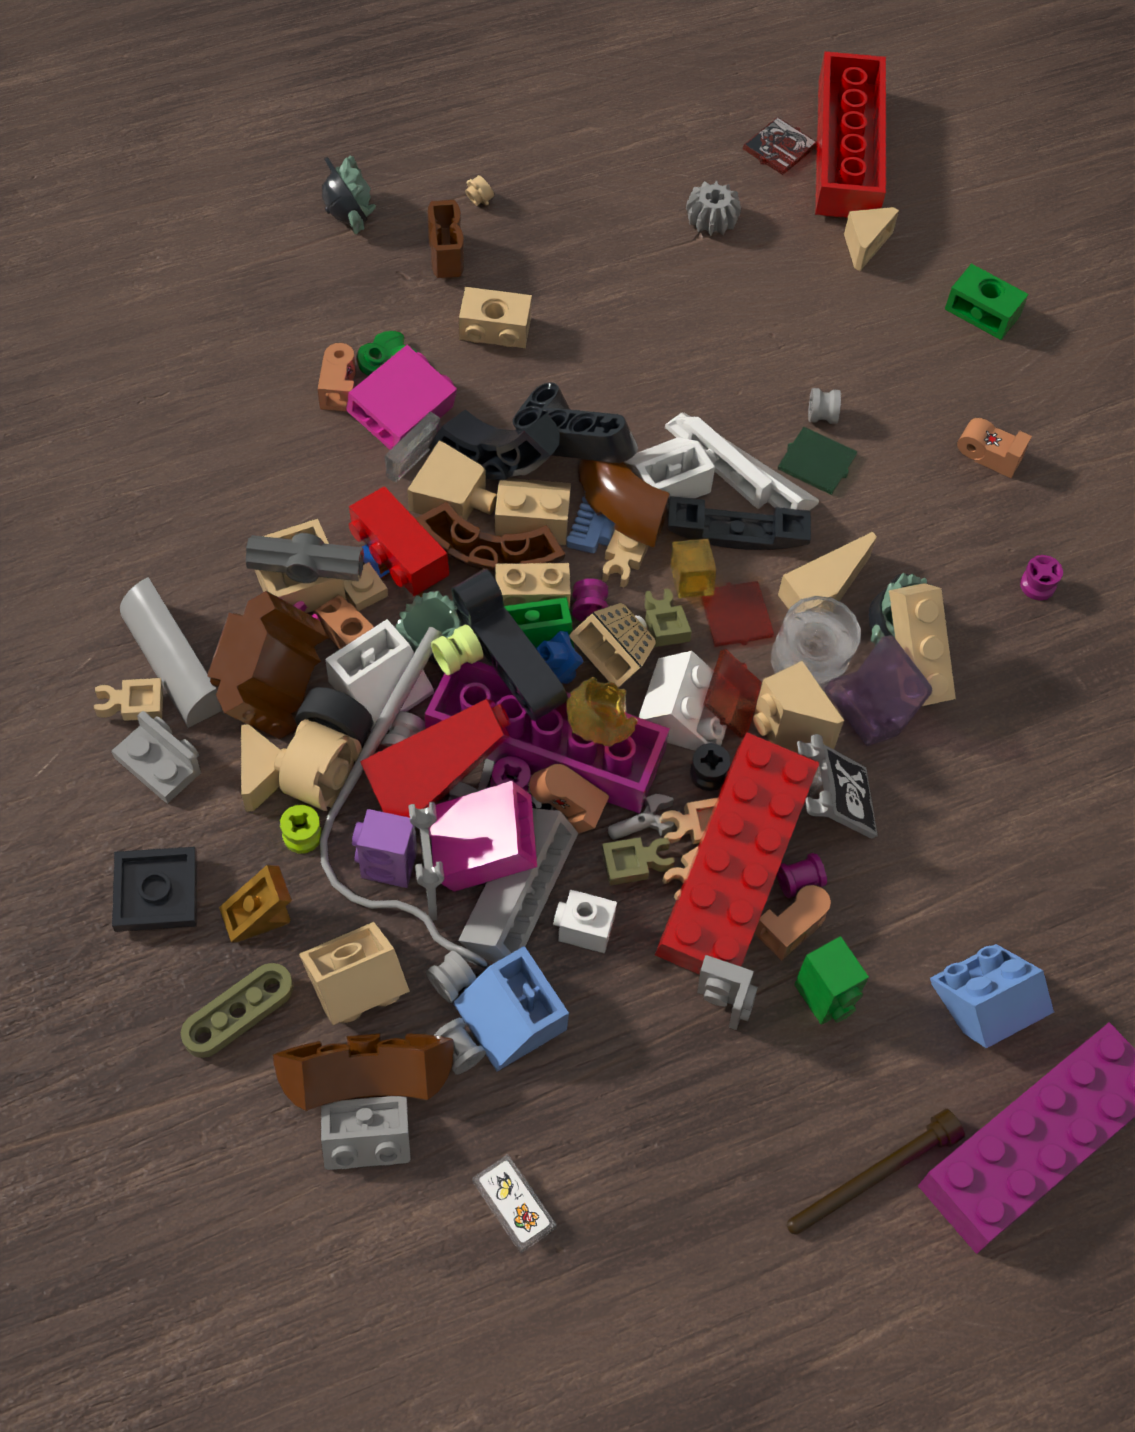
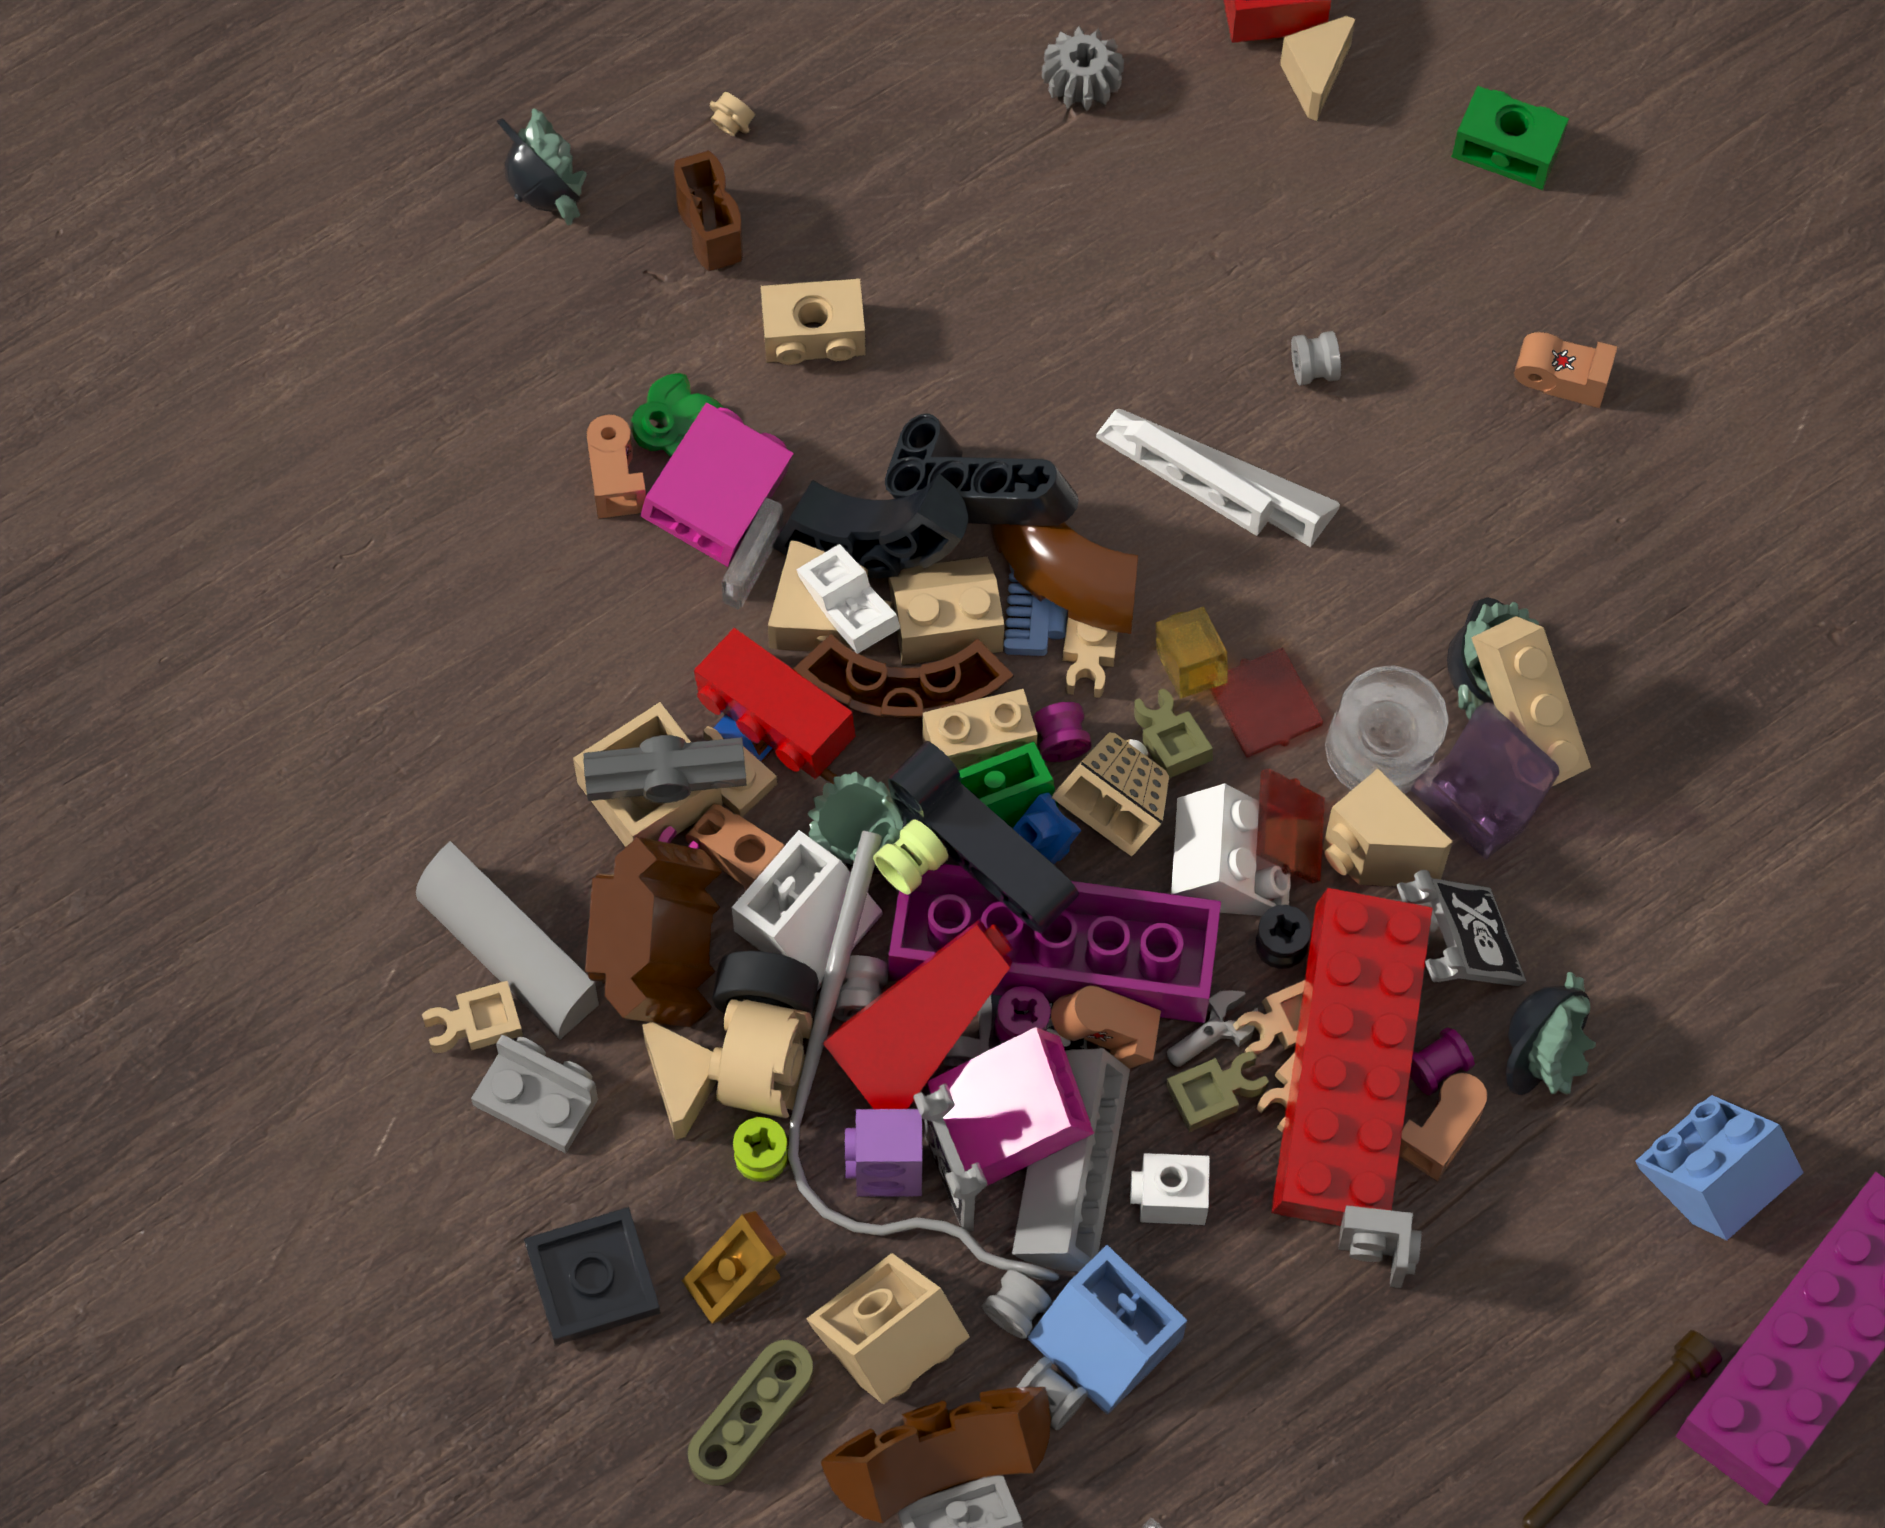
camera: 10 degrees left, 5 degrees up
(465, 482) = (848, 599): none -> white slope
(598, 713) = (1125, 907): clear yellow hair -> none
(675, 467) = (1129, 506): white slope -> none
(739, 529) = (1239, 575): black slope -> none
(817, 460) = (1323, 442): clear green piece -> none
(828, 574) = (1377, 626): tan slope -> none
(831, 981) = (1512, 1199): green brick -> none
(885, 876) = (1549, 1038): none -> hair
(1038, 568) = (1670, 544): magenta wheel -> none

